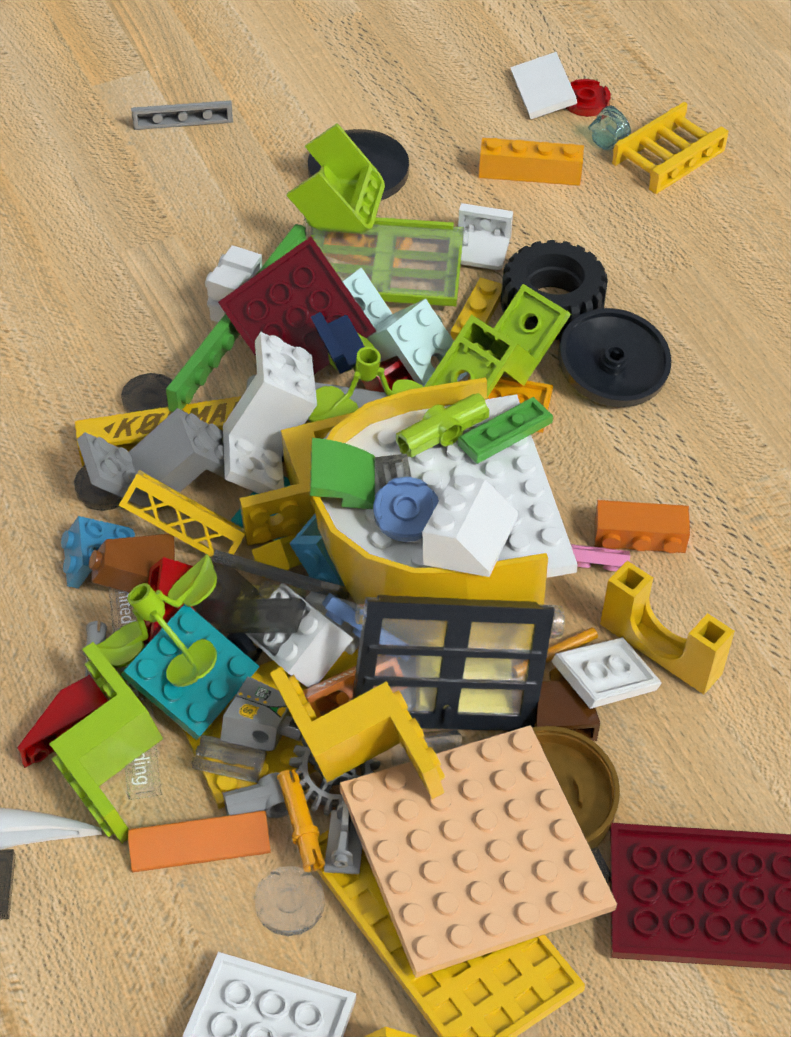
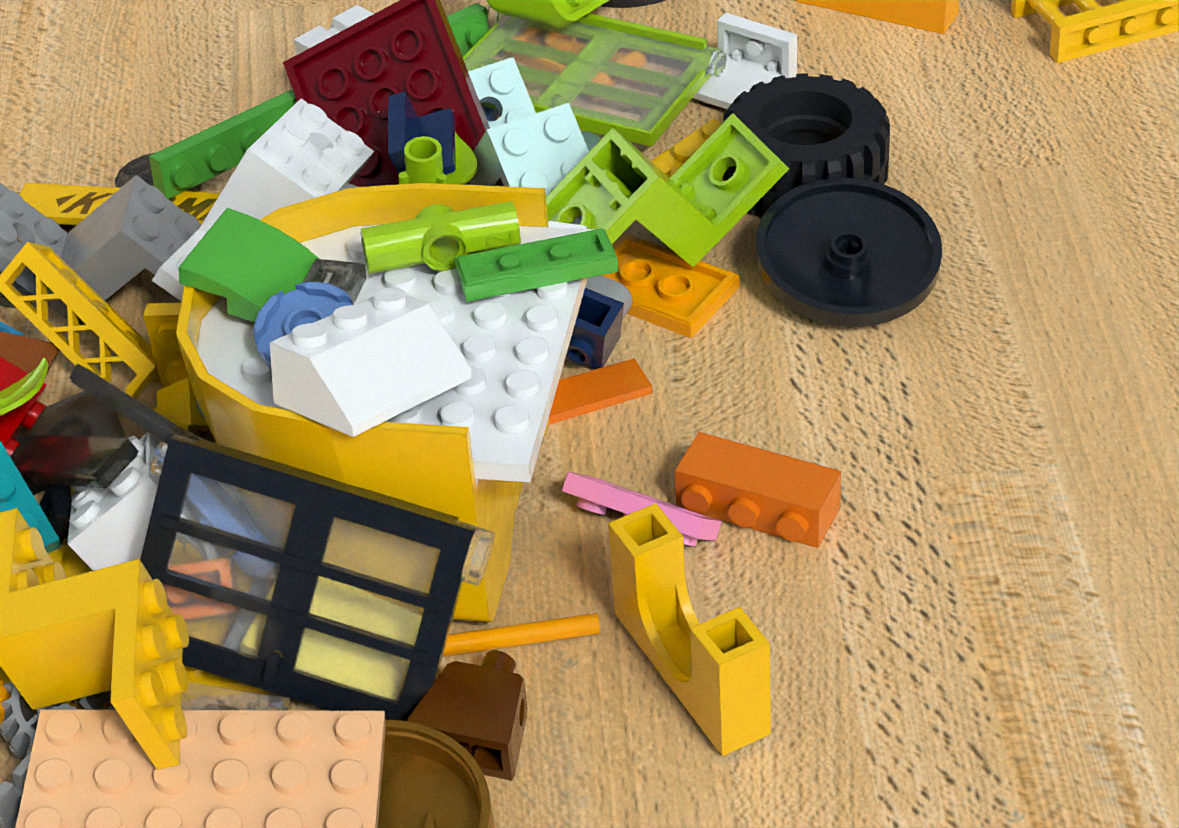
camera: 25 degrees right, 10 degrees down
(606, 672) = (568, 676): white tile -> none

